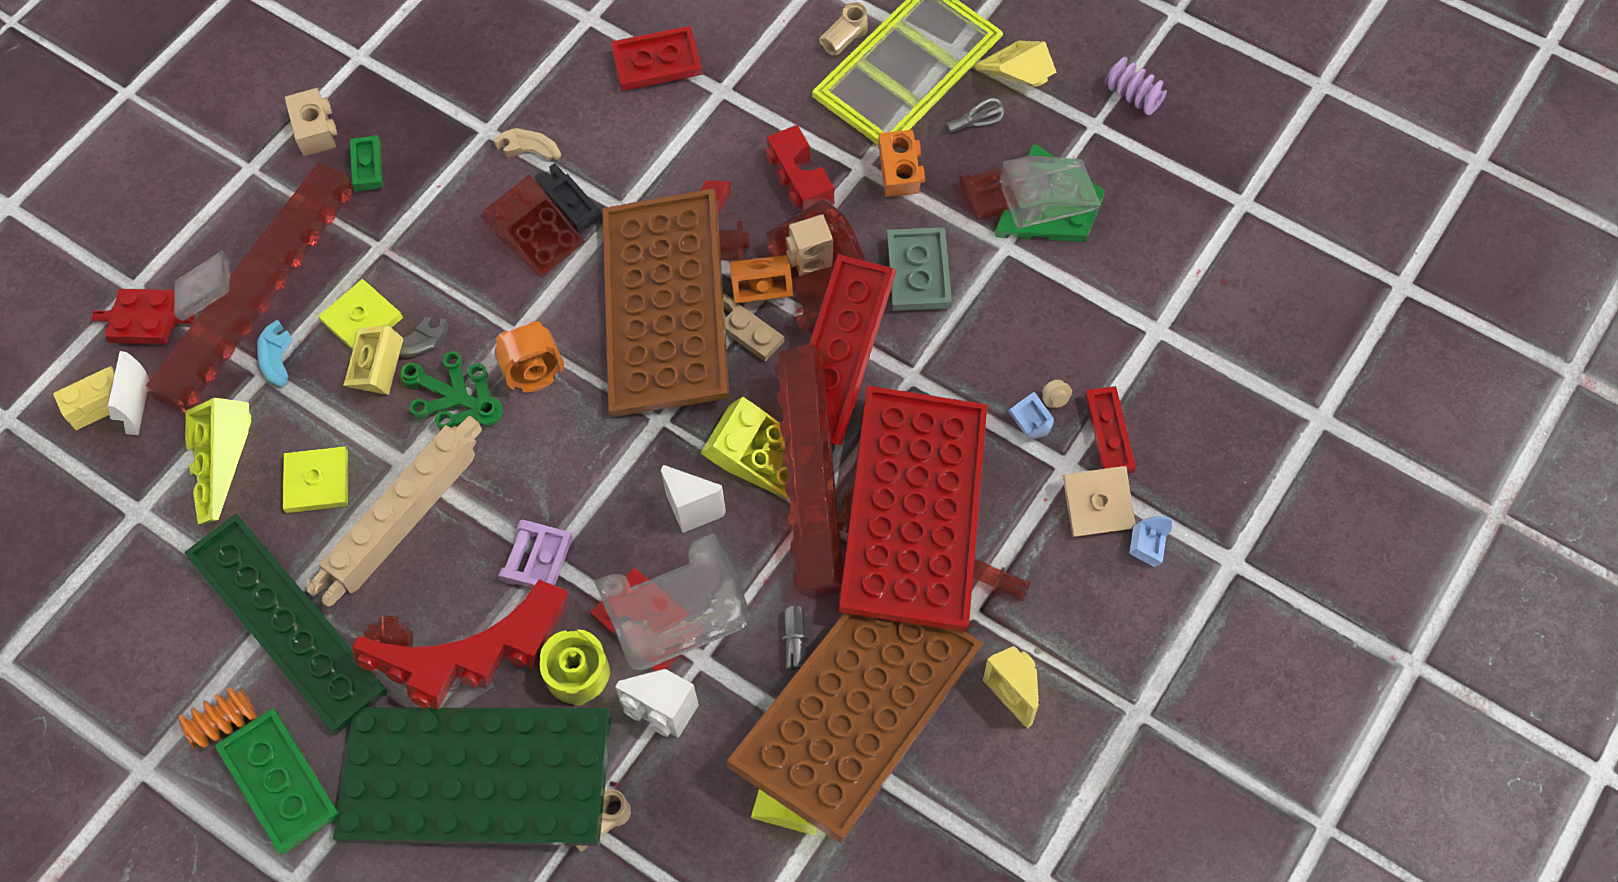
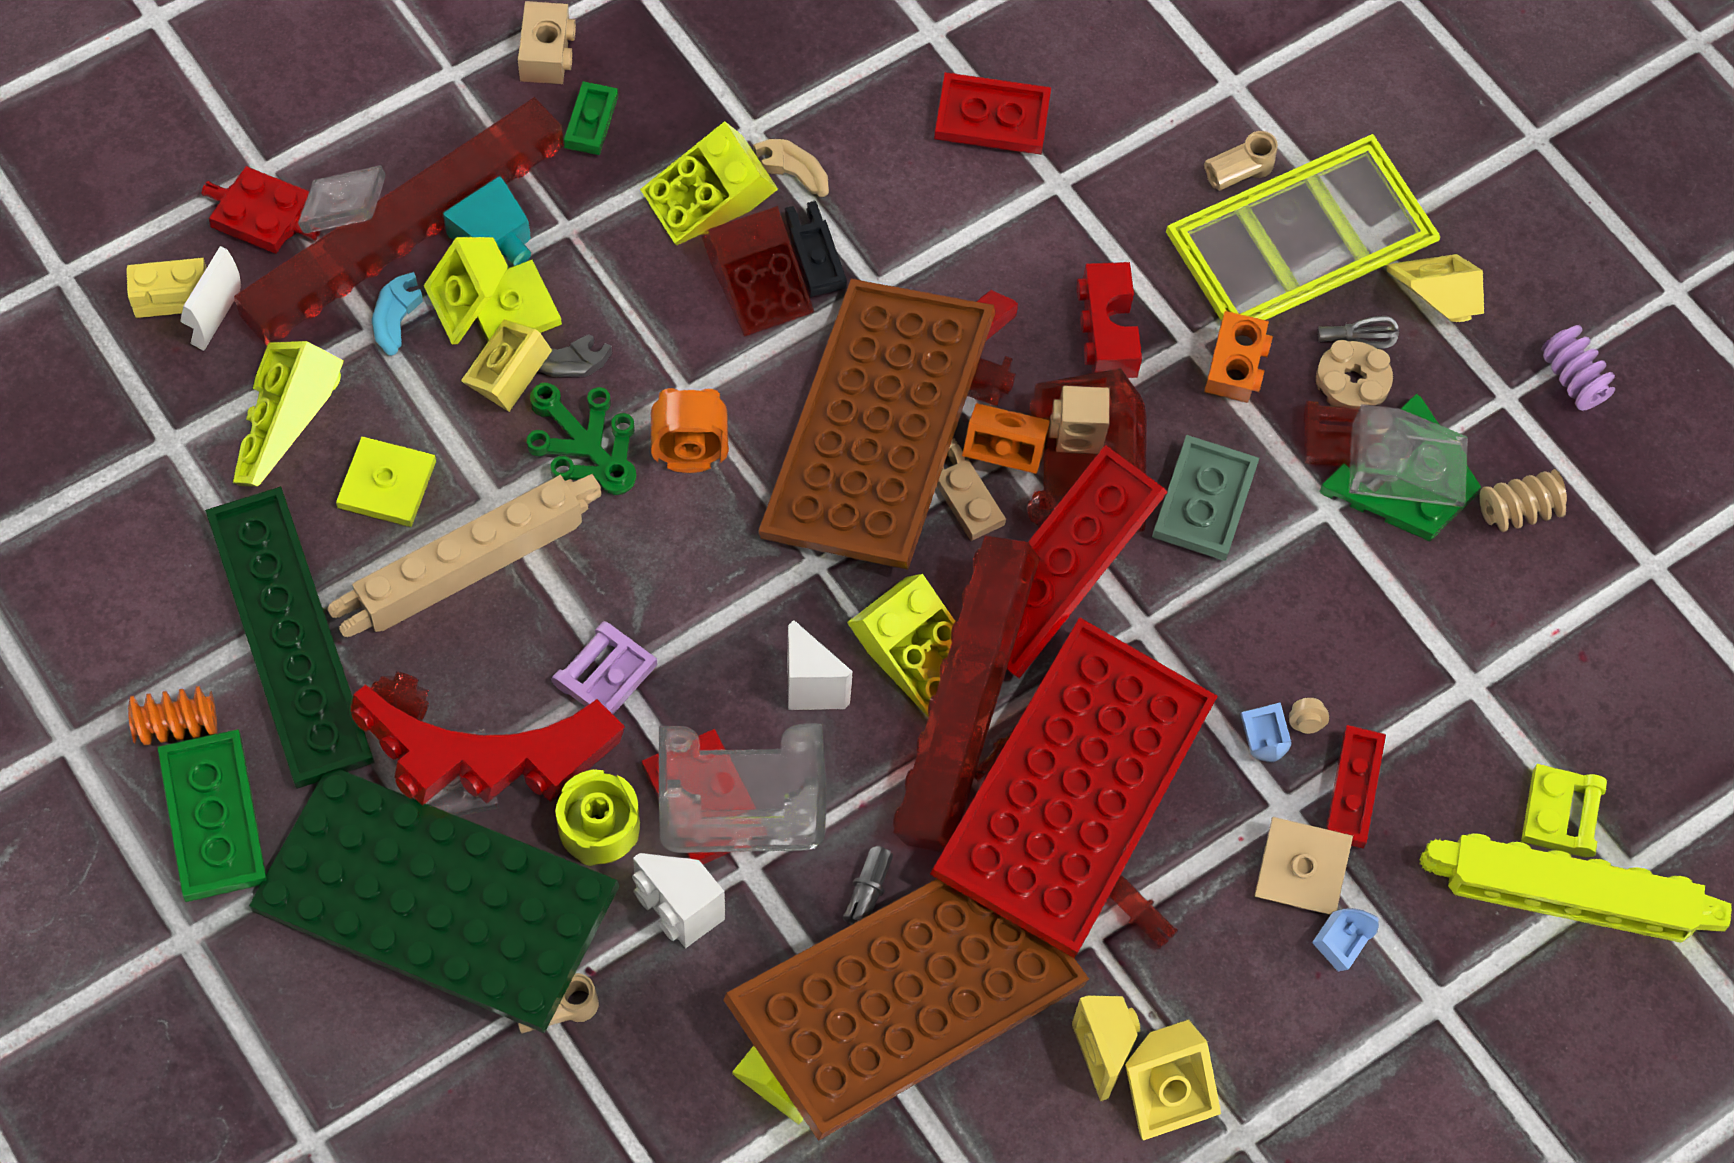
camera: 15 degrees right, 0 degrees up
(318, 312) = (465, 282): none -> neon yellow slope
(321, 265) = (495, 214): none -> teal torso
(472, 179) = (709, 185): none -> neon yellow slope
(984, 134) = (1358, 357): none -> tan plate
(1074, 692) = (1172, 1080): none -> light yellow slope
(1138, 189) = (1524, 499): none -> tan piece
(1249, 394) = (1550, 810): none -> neon yellow plate
(1291, 443) = (1575, 888): none -> neon yellow hinge

